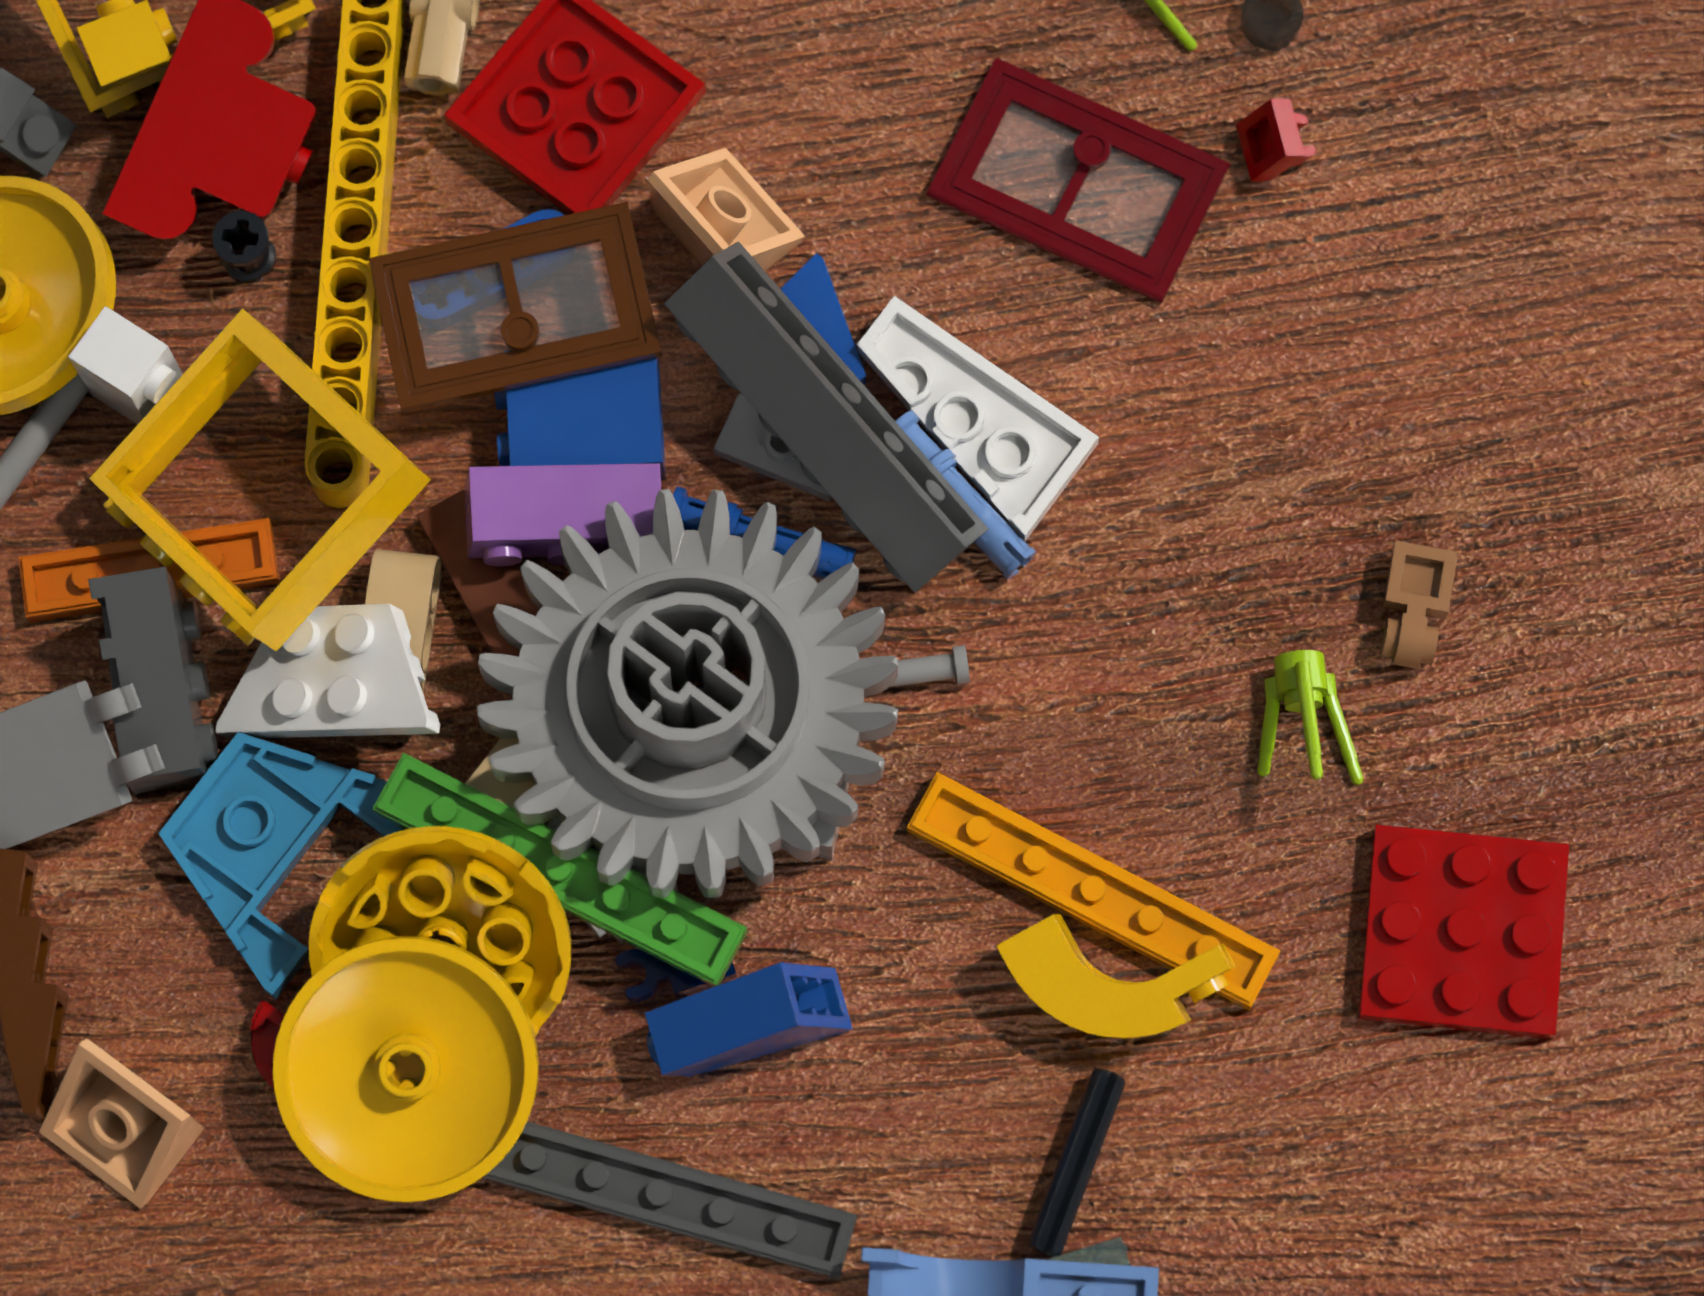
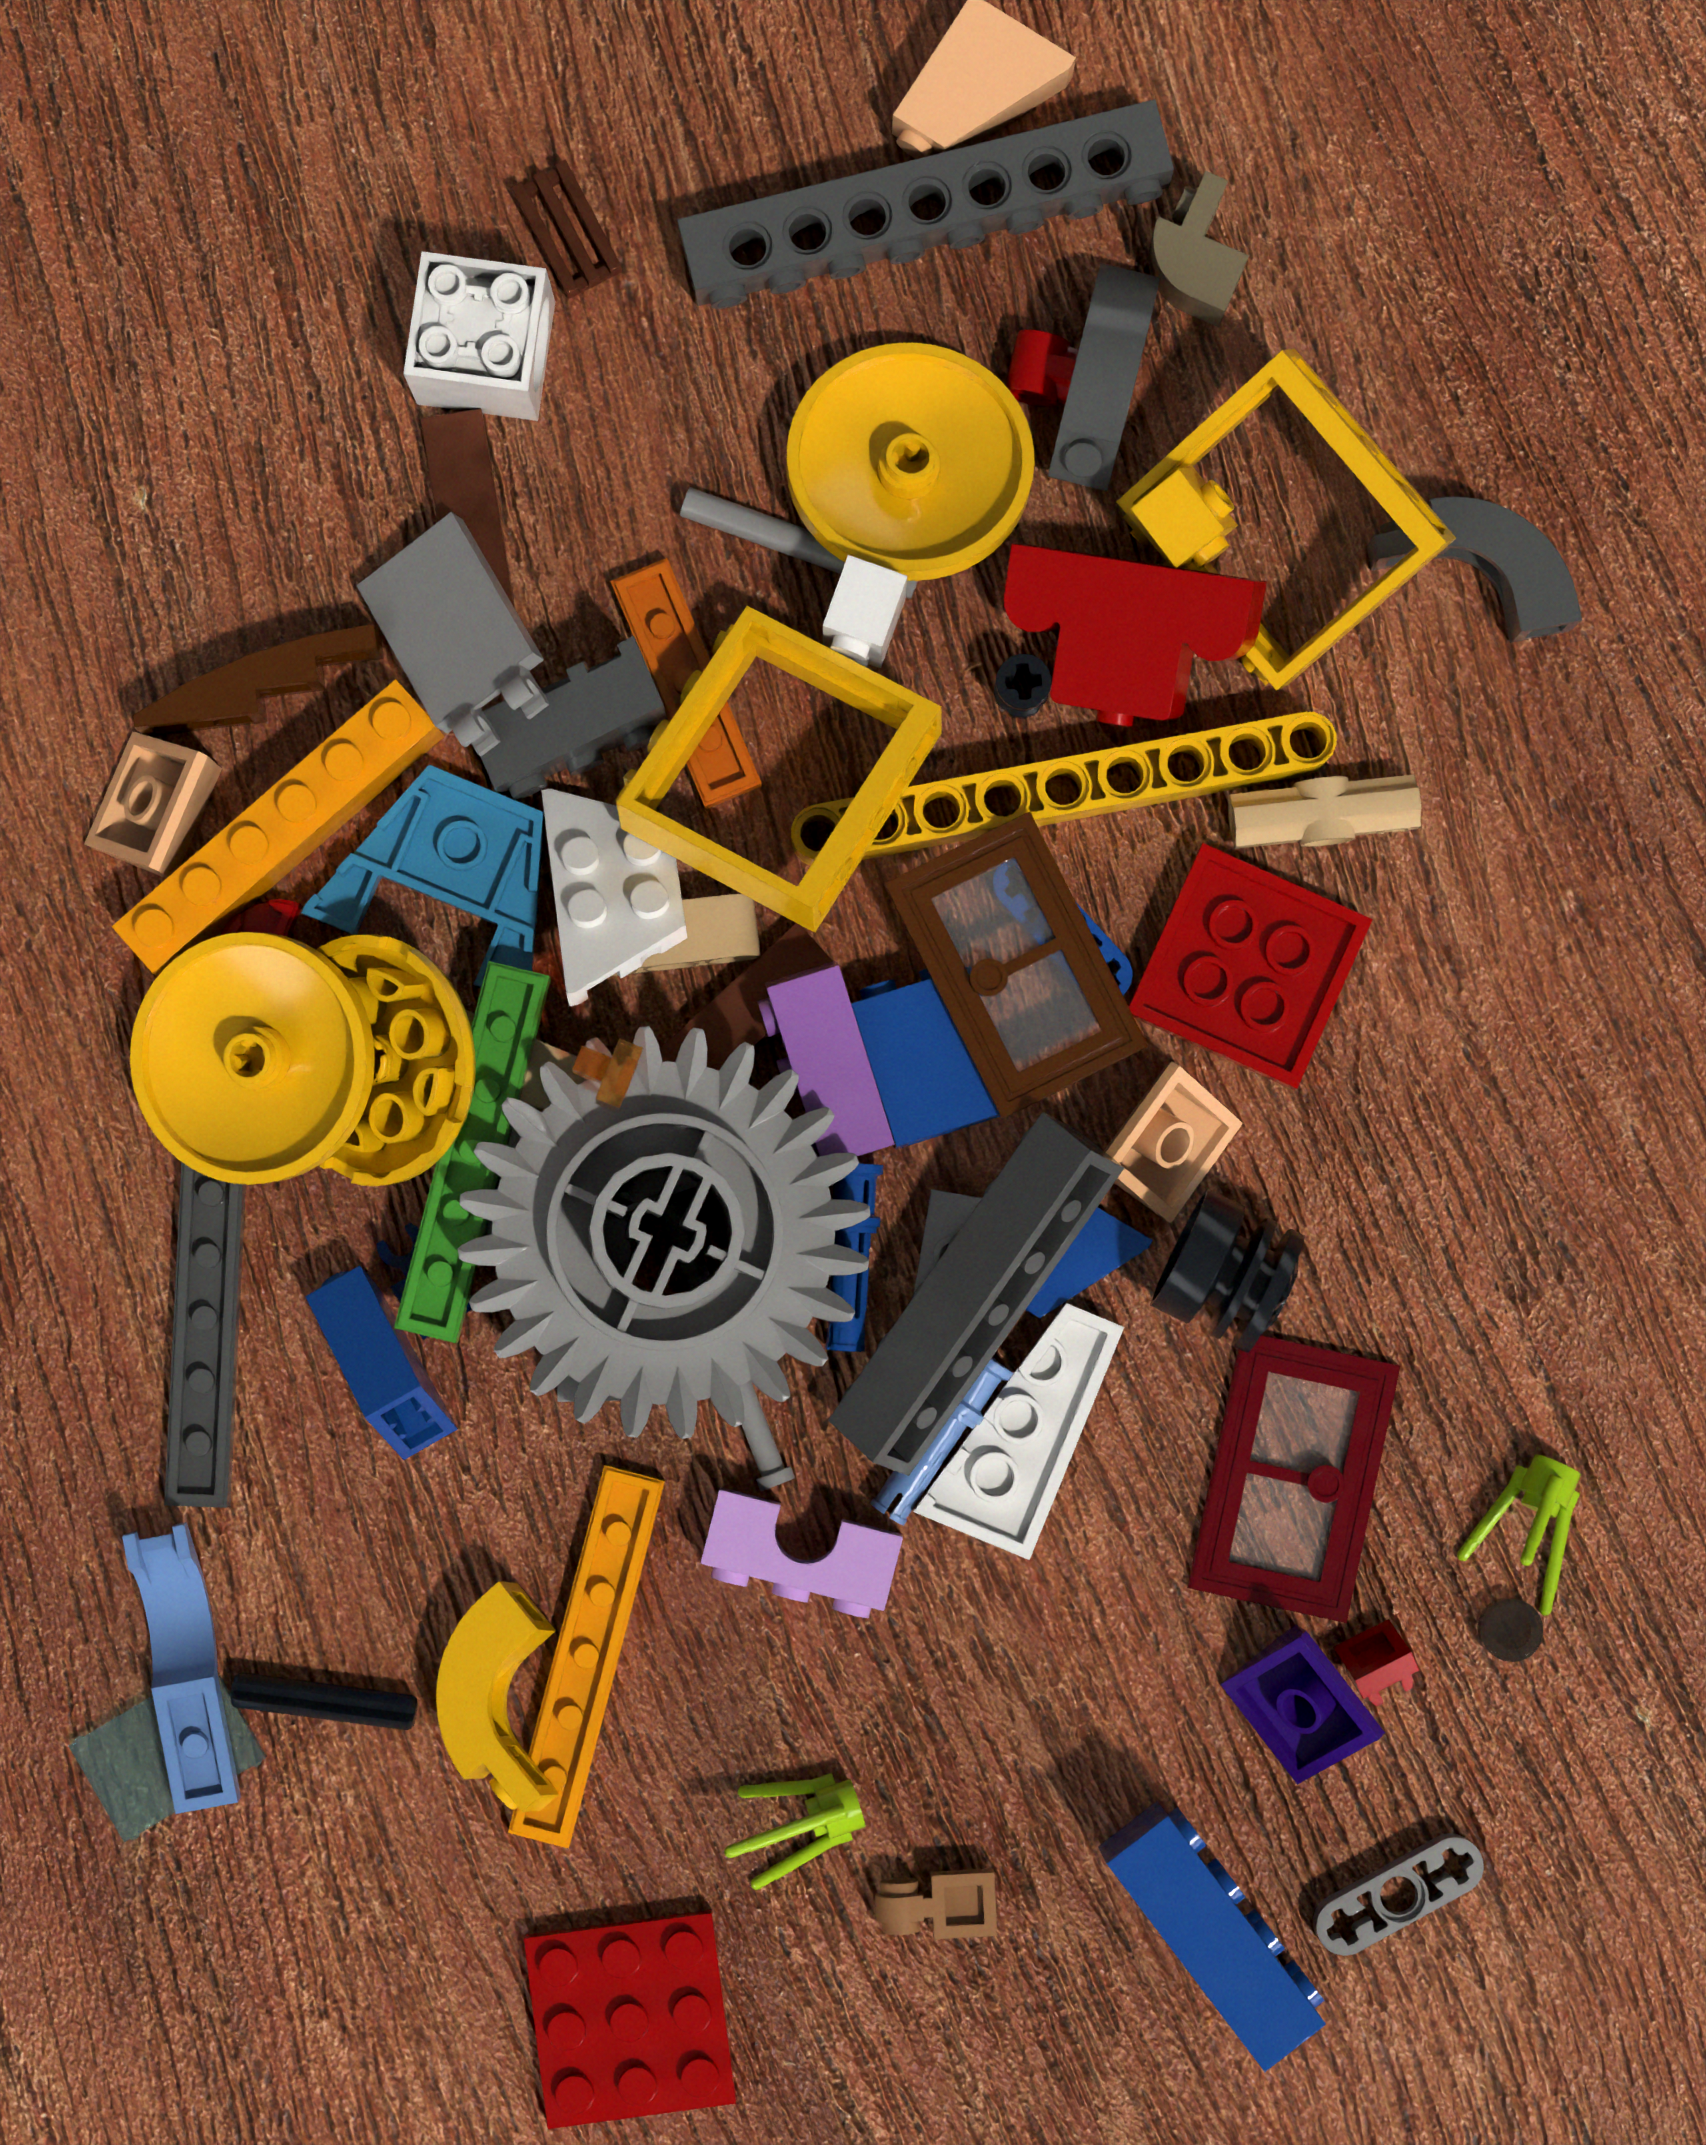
camera: 70 degrees right, 10 degrees up
(182, 998) = (280, 828): none -> light orange brick
(515, 689) = (612, 1073): none -> clear orange tile
(863, 181) = (1228, 1271): none -> black wheel
(1016, 702) = (746, 1544): none -> lavender arch
(1298, 215) = (1301, 1705): none -> dark purple slope
(1499, 342) = (1218, 1945): none -> blue brick
(1504, 130) = (1422, 1905): none -> light grey beam

